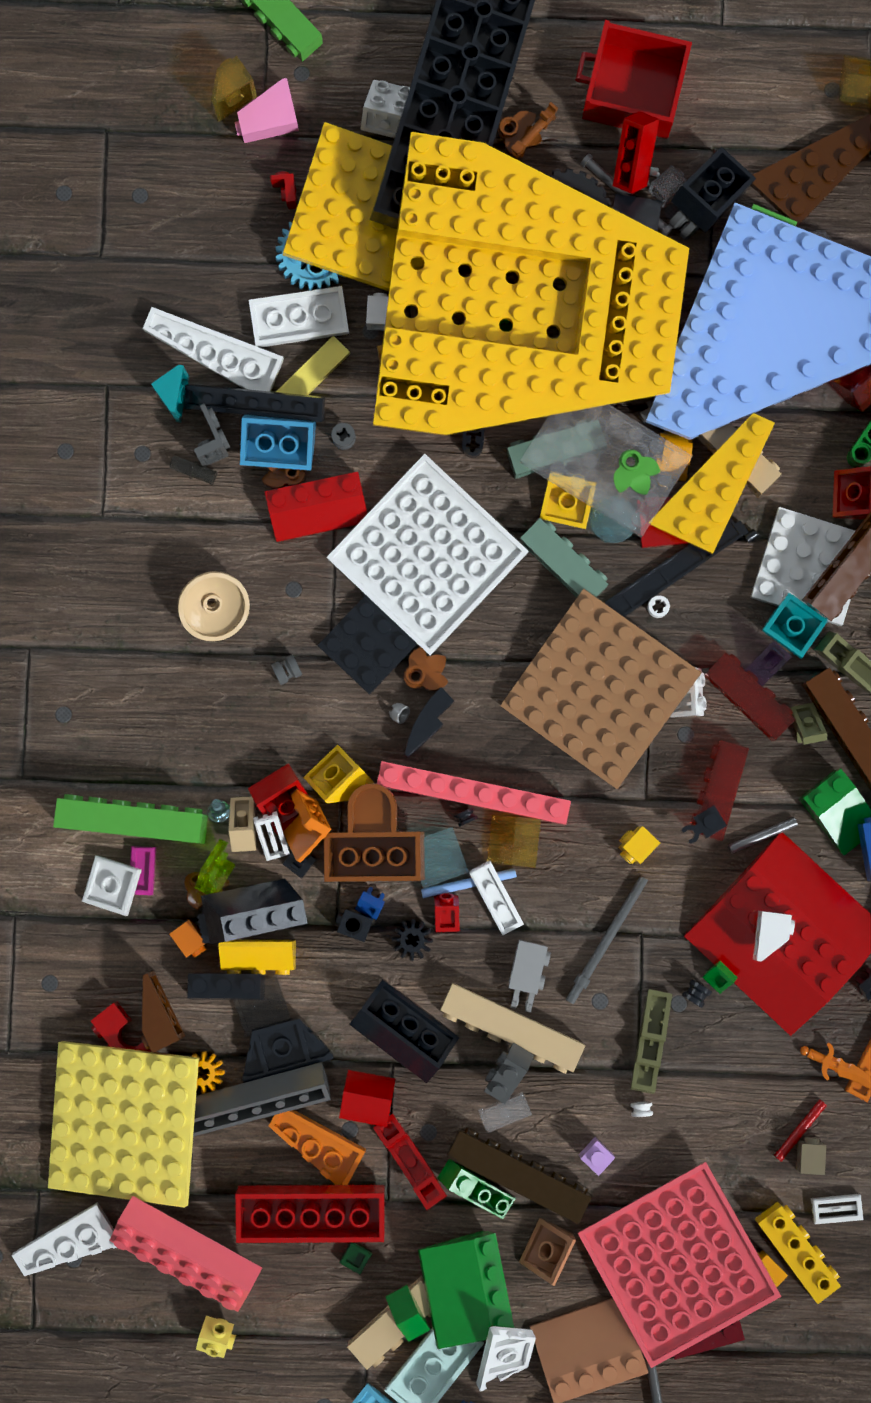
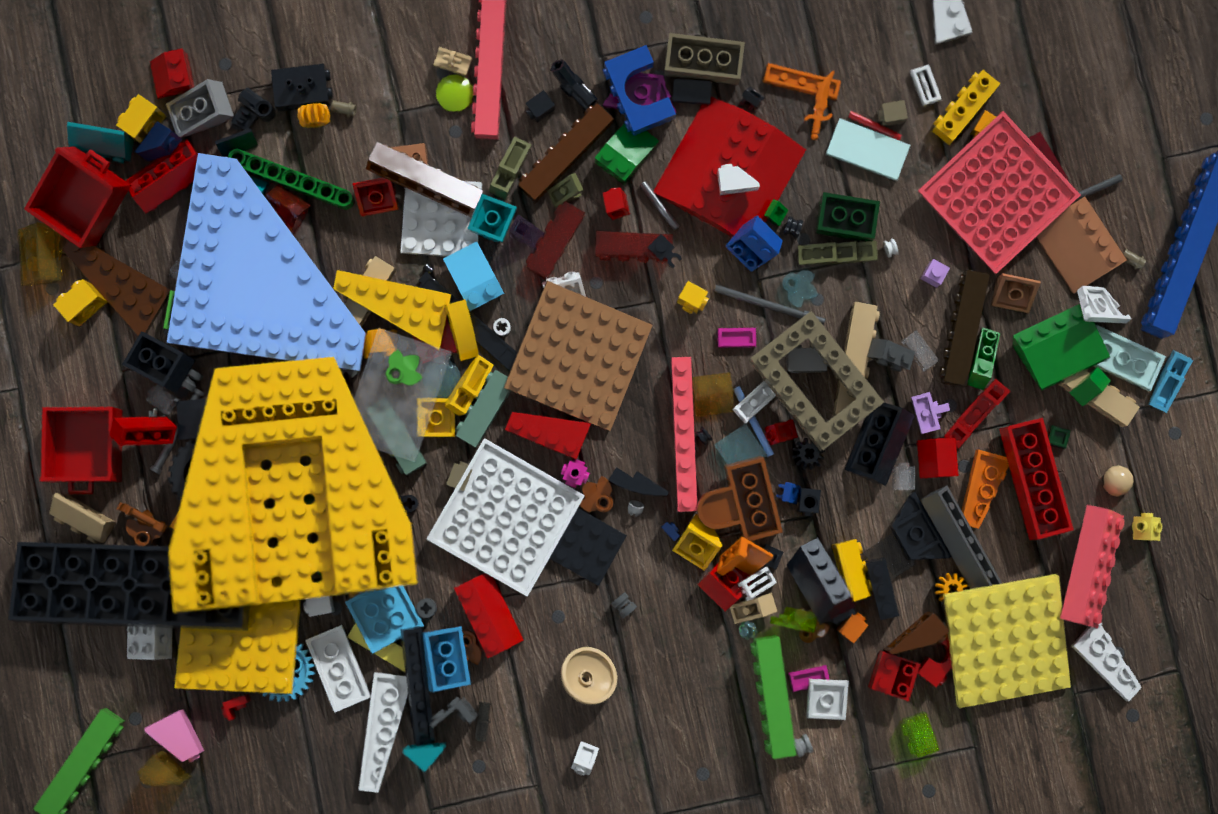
camera: 110 degrees left, 0 degrees up
(39, 987) = (920, 735): none -> clear neon green brick
(64, 841) = (803, 745): none -> light grey wheel
(117, 973) = (894, 675): none -> red slope
(118, 578) = (584, 759): none -> white bracket
(283, 1317) = (1118, 480): none -> tan hair
(346, 381) = (383, 615): none -> medium azure plate
(354, 1049) = (903, 477): none -> clear brick
(361, 748) = (671, 530): none -> dark blue plate
(426, 1101) = (928, 412): none -> lavender hinge
(454, 658) = (574, 481): none -> dark pink brick
(492, 507) = (456, 475): none -> dark tan brick
(512, 637) = (553, 433): none -> red wedge
(532, 914) = (794, 400): none -> dark tan brick
(551, 62) = (81, 518): none -> tan slope
(576, 889) = (736, 337): none -> dark pink tile
(596, 549) = (469, 386): none -> yellow slope
(617, 986) = (803, 287): none -> clear light blue plate
(665, 556) = (462, 329): none -> yellow slope
(687, 939) = (754, 243): none -> blue slope
(693, 1064) = (847, 217): none -> dark green brick
(728, 586) = (473, 276): none -> medium azure slope
(772, 1113) = (868, 149): none -> light aqua tile
(778, 781) = (616, 203): none -> red brick
(807, 114) = (80, 302): none -> yellow brick

